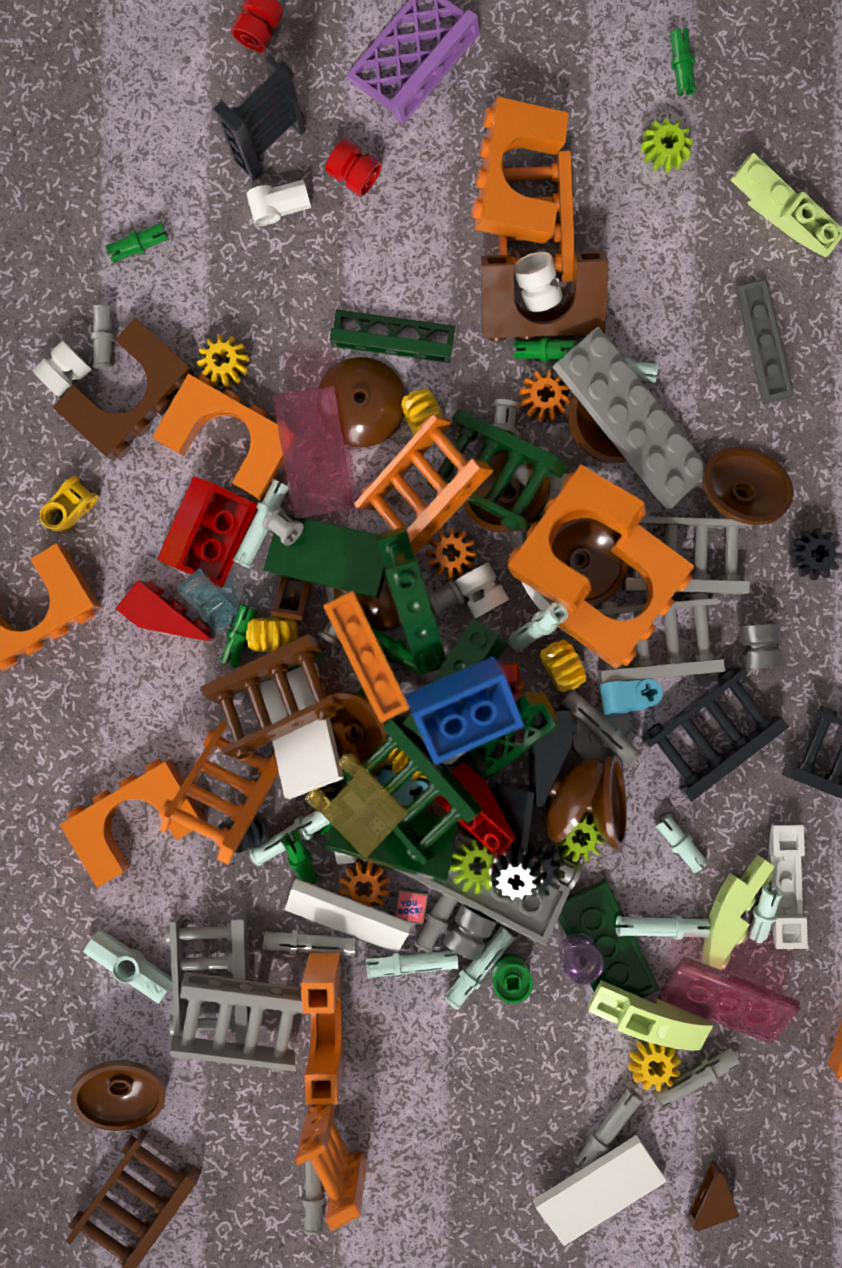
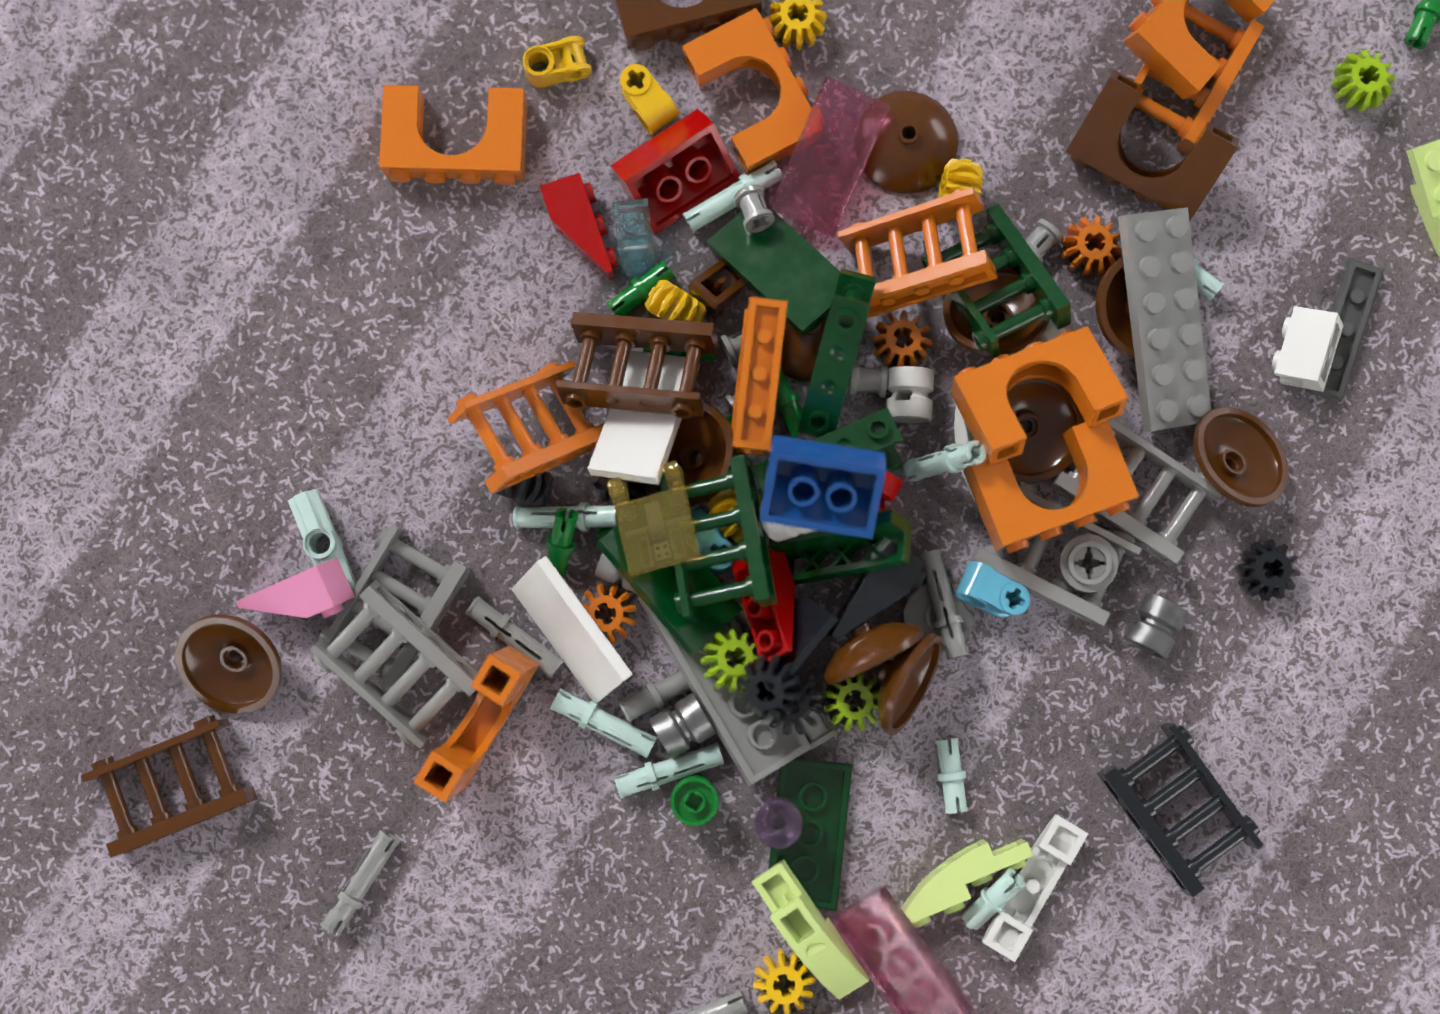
camera: 40 degrees right, 5 degrees down
(91, 827) = (376, 382): orange arch -> none
(139, 1014) = (304, 594): none -> bright pink slope
(155, 492) = (650, 103): none -> yellow piece
(337, 1168) = (400, 883): orange fence -> none
(392, 343) = (973, 104): dark green fence -> none
(411, 905) = (642, 664): tile -> none
(539, 281) = (1156, 125): white wheel -> none
(543, 349) = (1118, 200): green pin -> none
(563, 666) = (944, 519): yellow gear -> none
(675, 927) = (891, 855): light aqua pin -> none
(699, 637) = (1099, 550): none -> light grey gear
(742, 746) = (1074, 713): black fence -> none
(747, 373) = (1307, 348): none -> white brick

